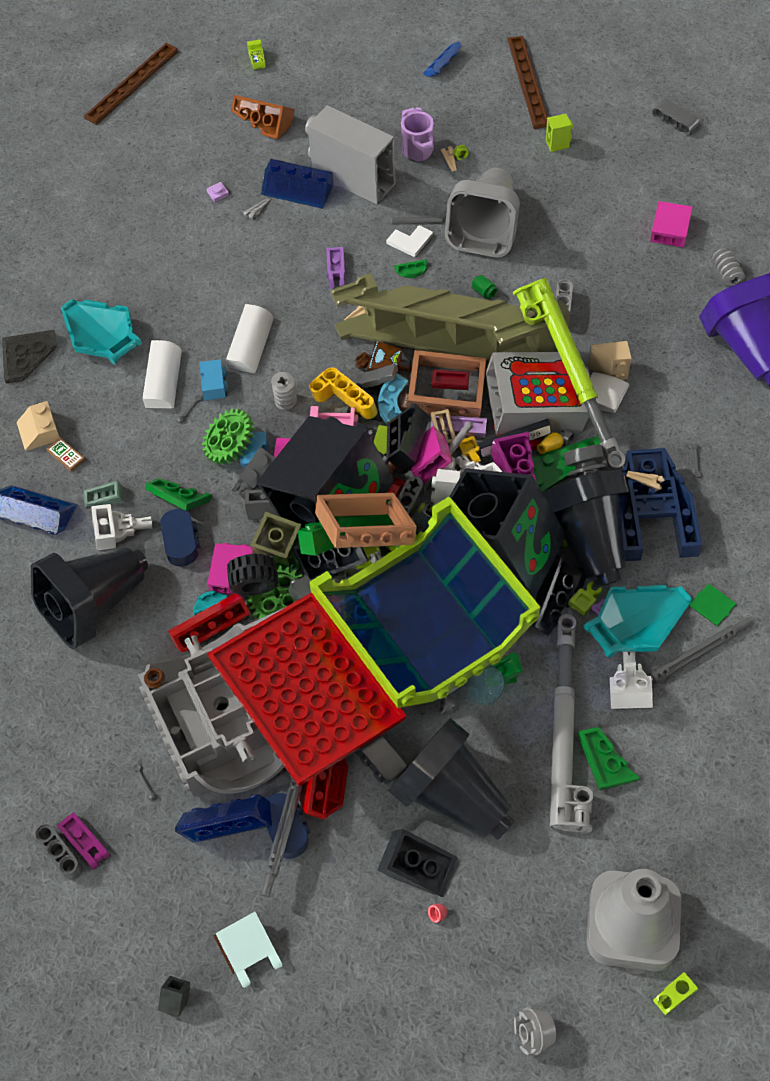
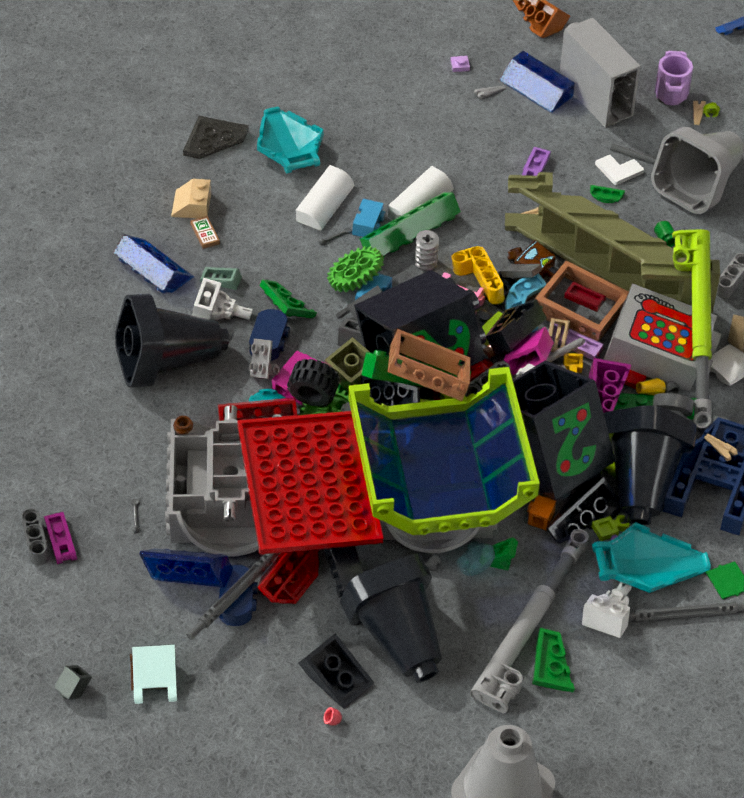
camera: 20 degrees right, 10 degrees down
(187, 567) = (261, 359): none -> light grey hinge
(256, 369) = (406, 227): none -> green brick
(535, 431) = (638, 368): black tile -> none

